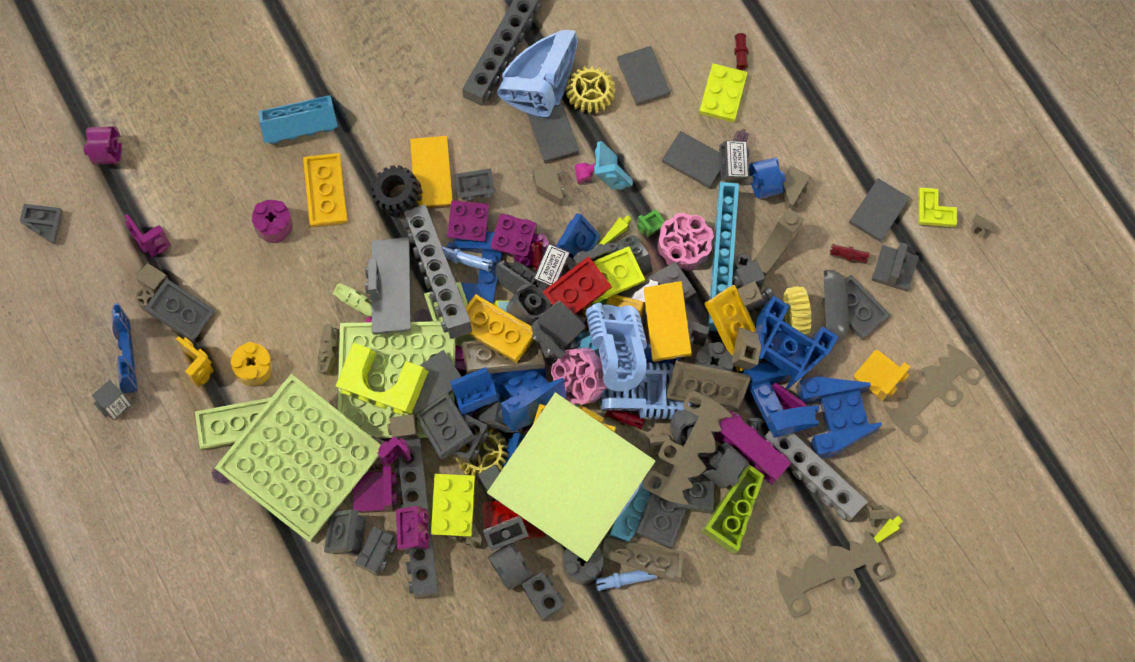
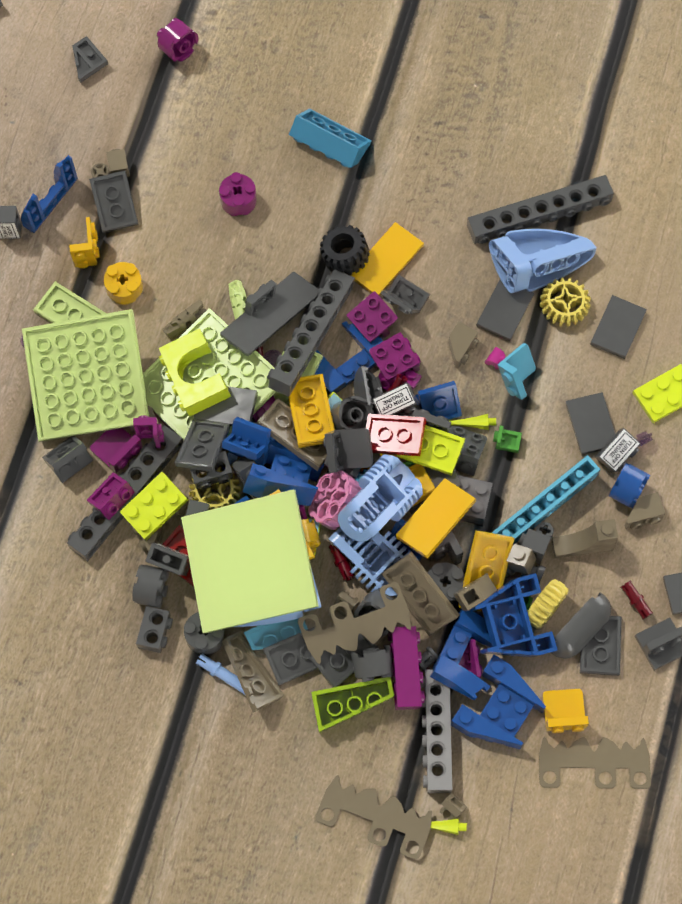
camera: 50 degrees right, 0 degrees up
(152, 242) = (142, 137): magenta bracket -> none
(325, 190) = (298, 206): yellow tile -> none
(375, 551) = (74, 489): dark grey brick -> none
(403, 427) = (176, 420): dark tan brick -> none
(457, 256) = (341, 336): light blue pin -> none
(696, 241) = (502, 468): bright pink connector -> none

